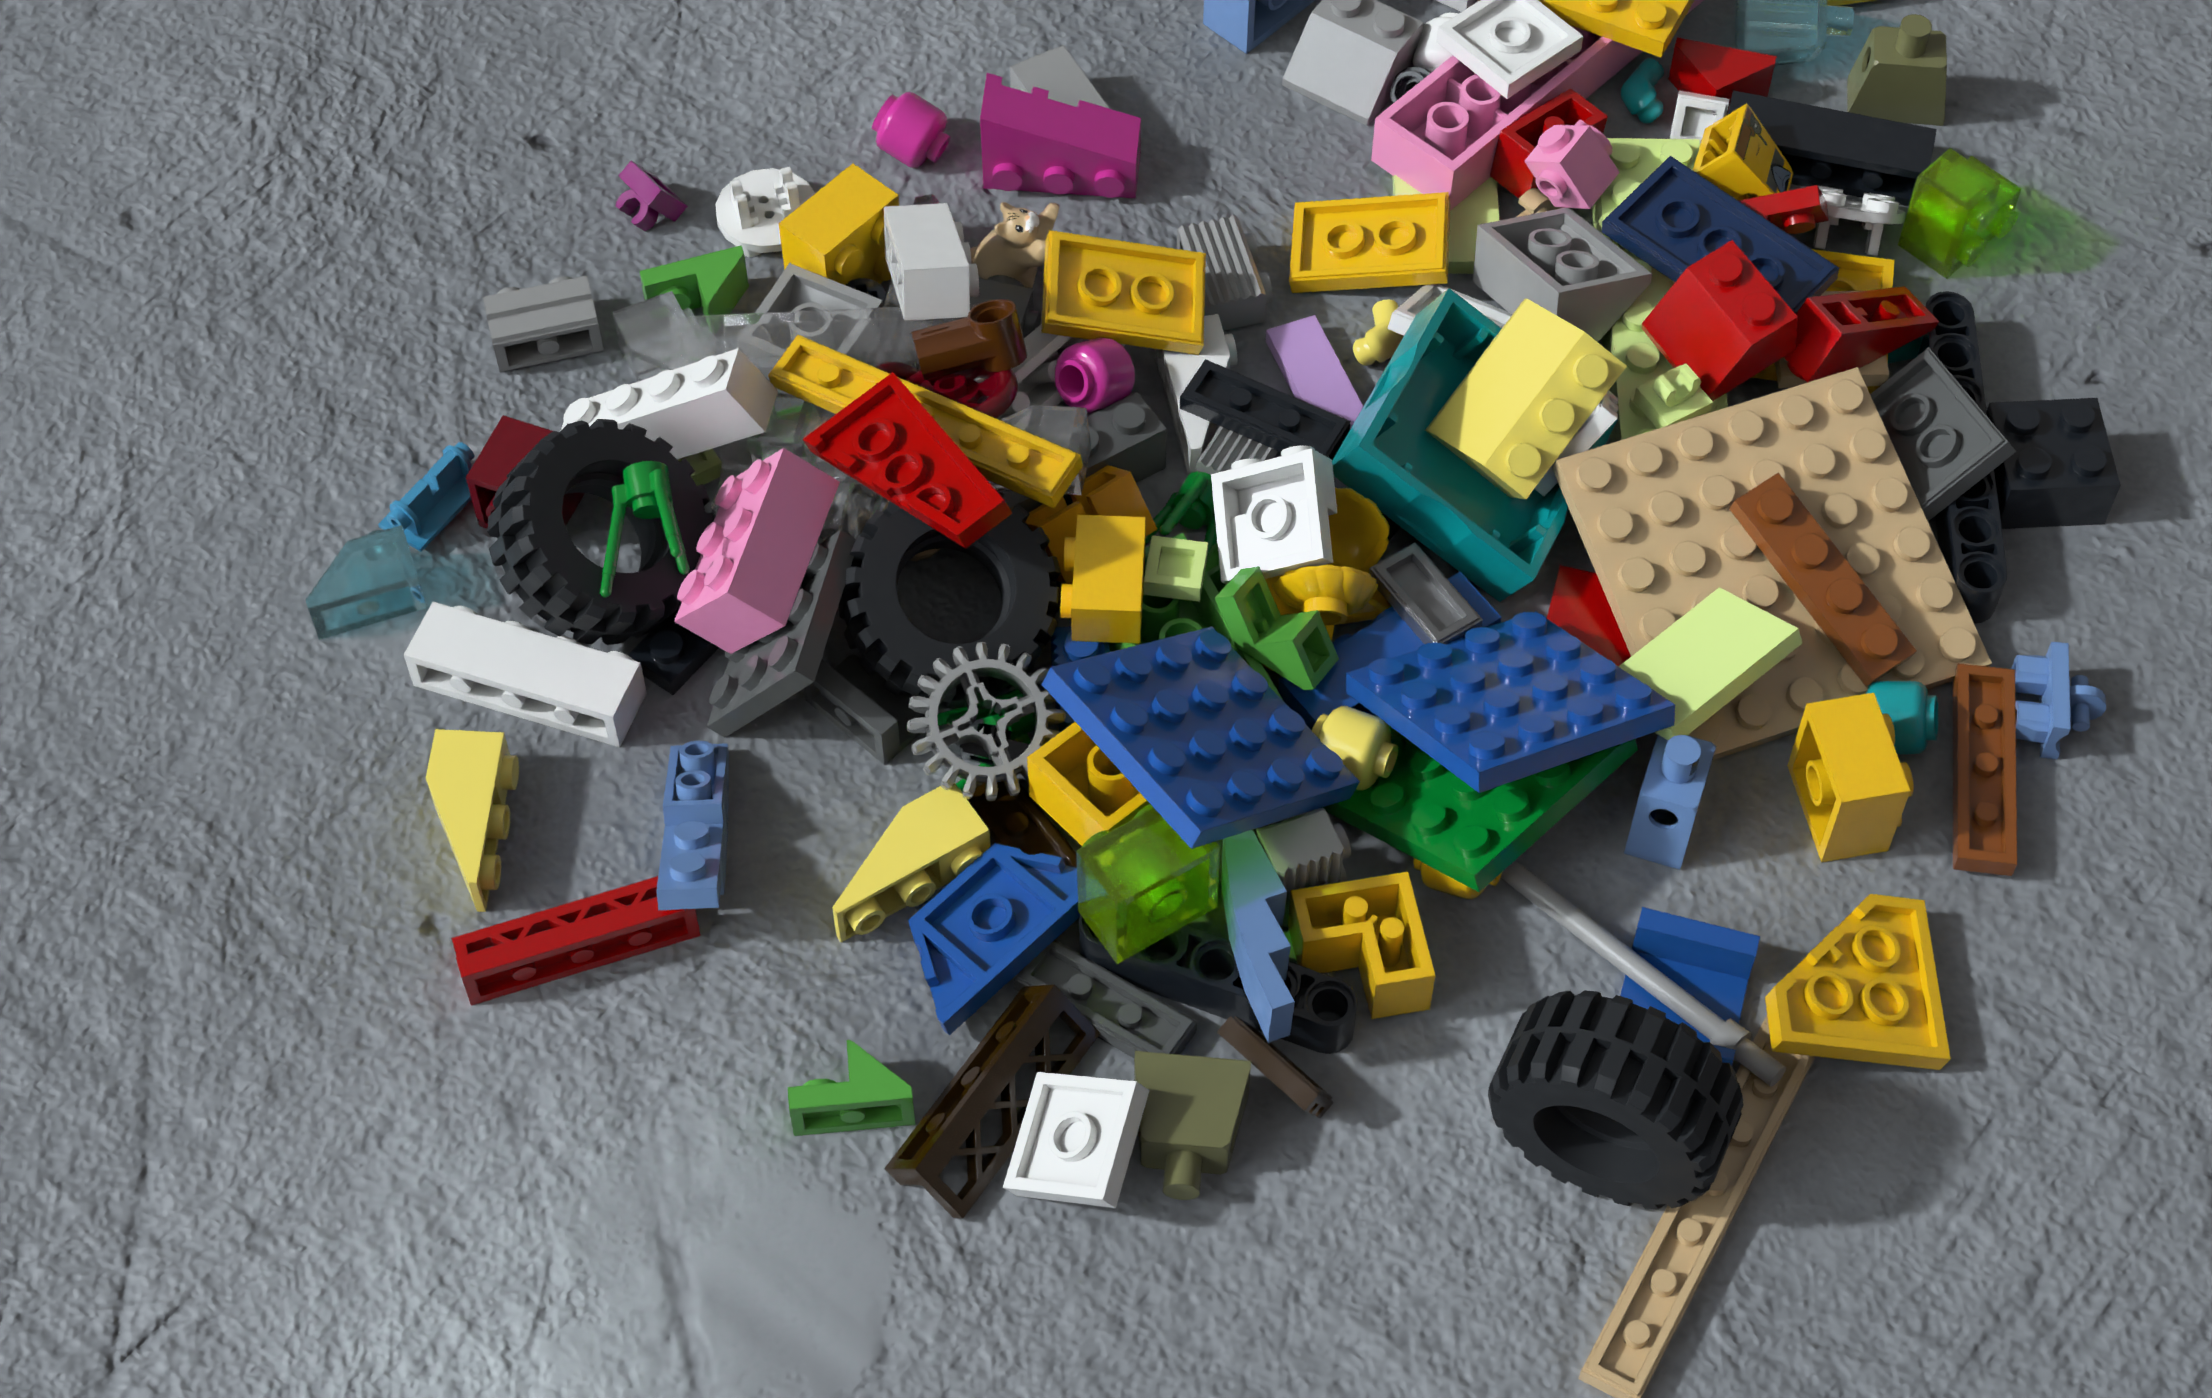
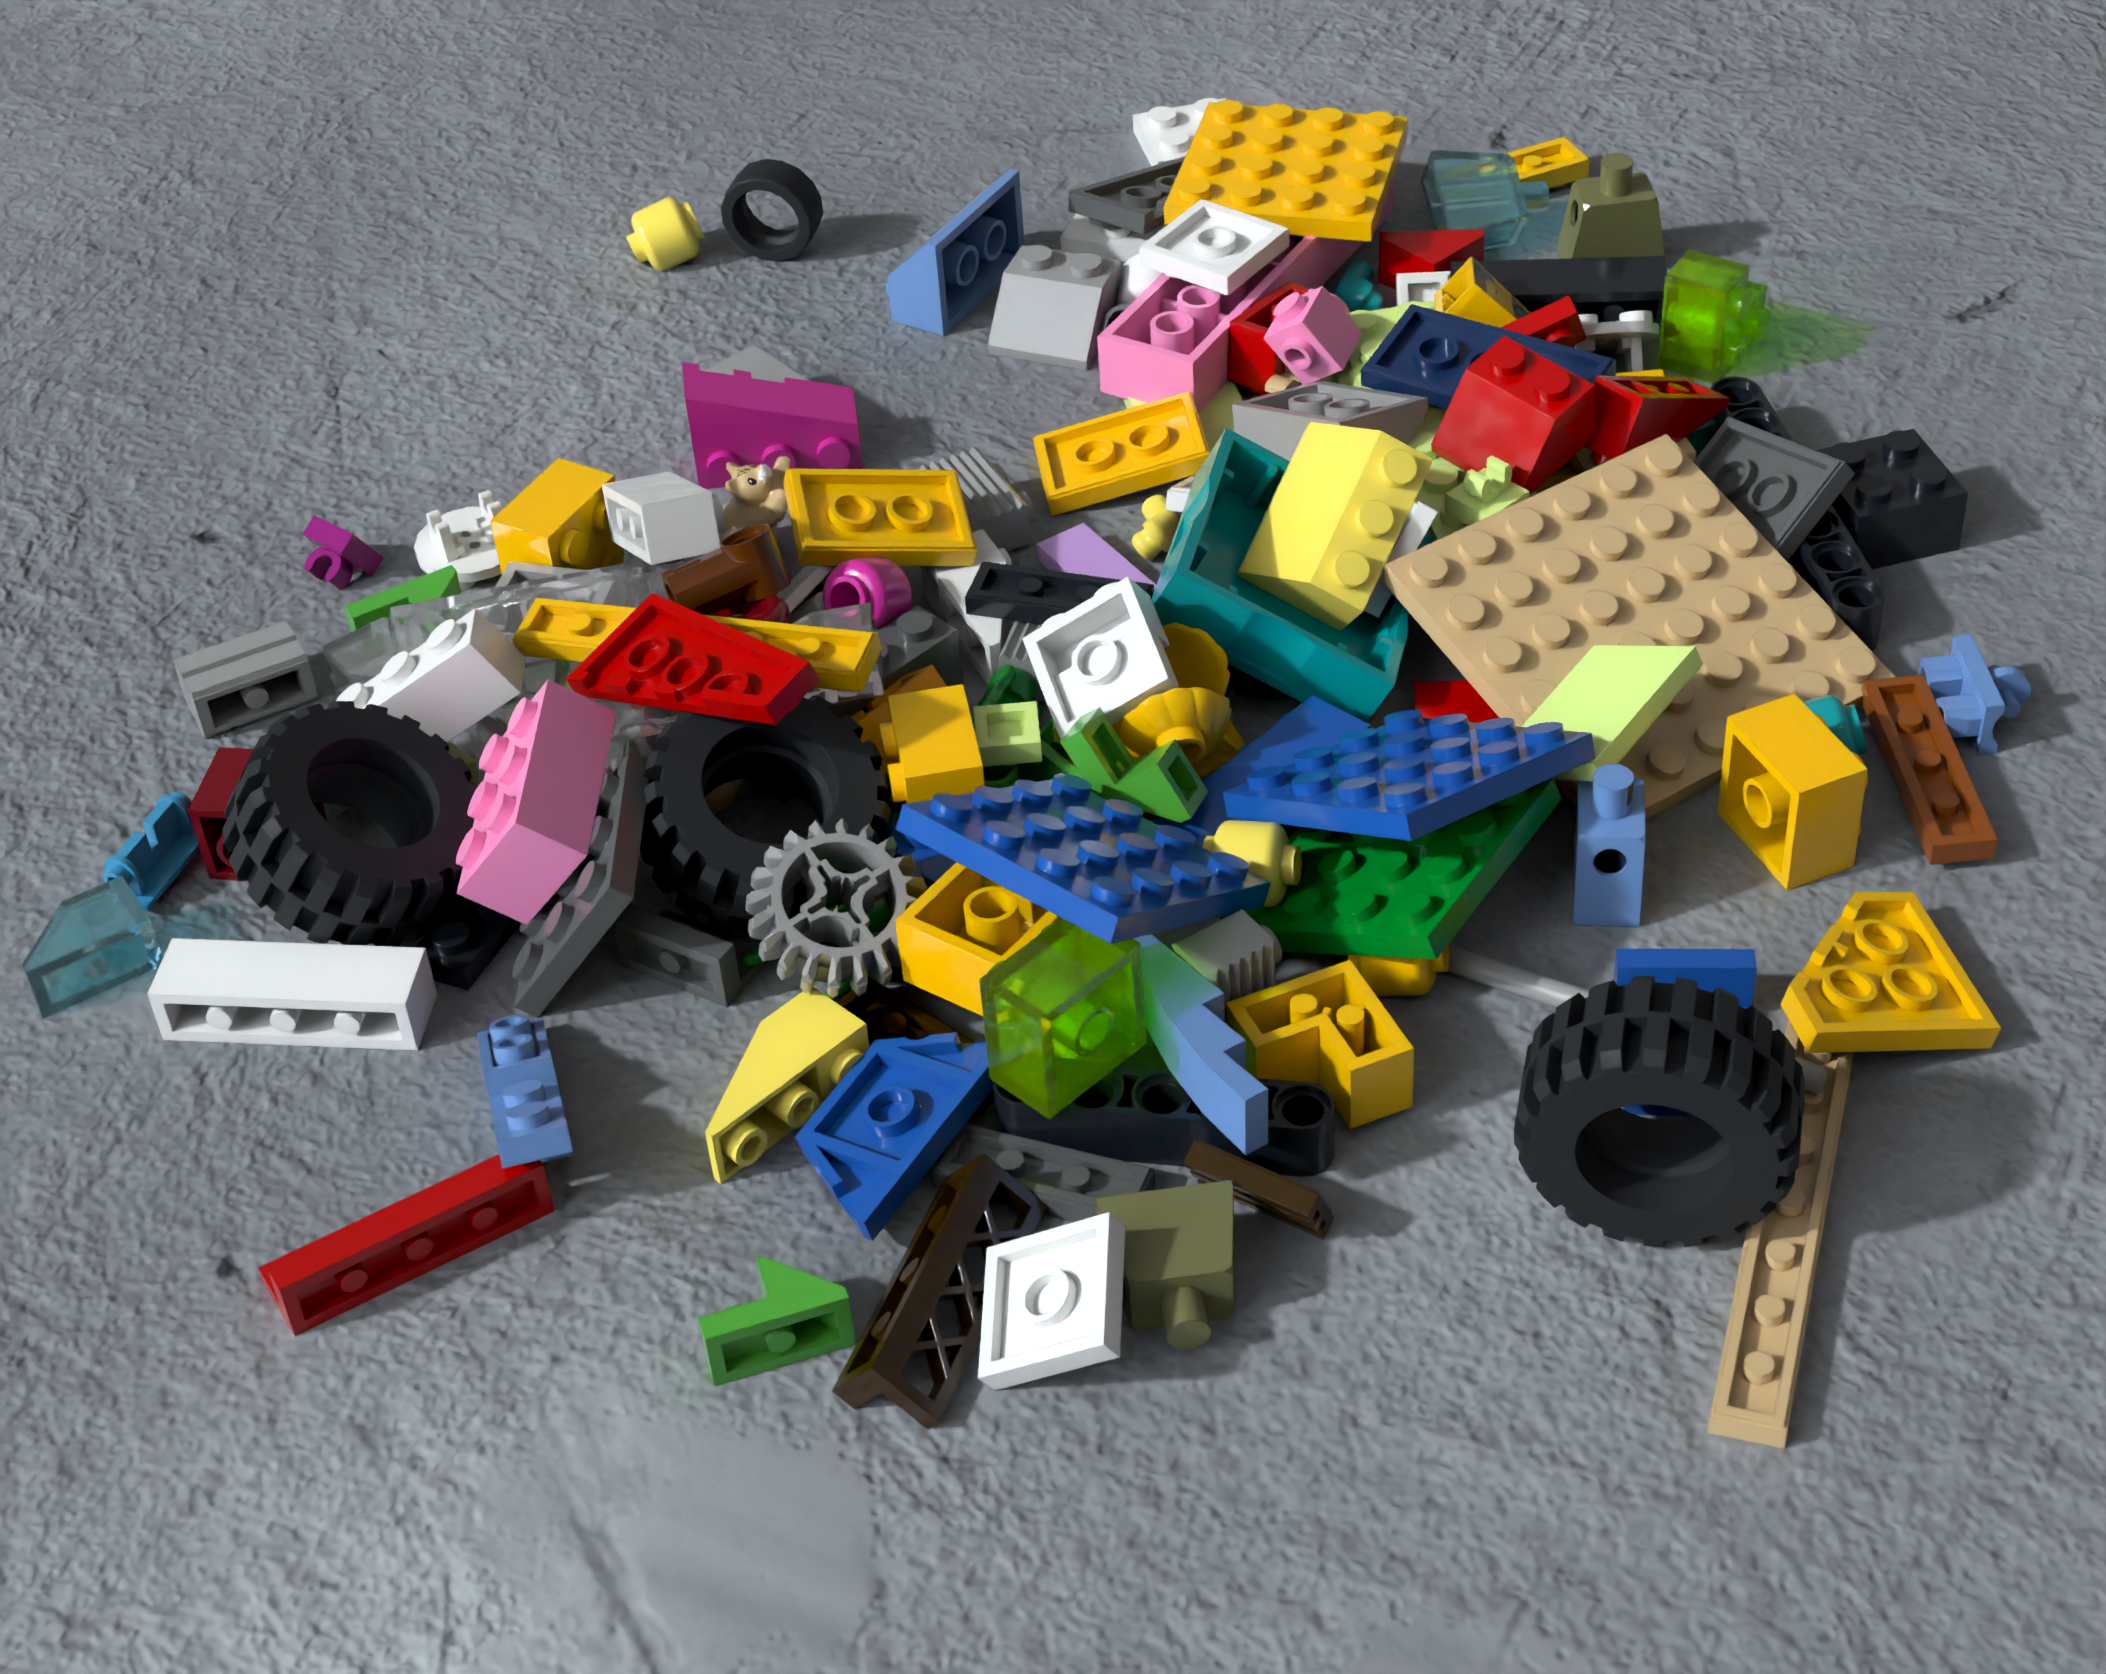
camera: 10 degrees left, 15 degrees down
(469, 791) = (252, 1128): light yellow slope -> none
(650, 496) = (405, 764): green plant -> none
(911, 129) = (611, 443): dark pink head -> none
(1424, 596) = (1282, 718): flat silver tile -> none
(1822, 579) = (1696, 617): dark orange plate -> none

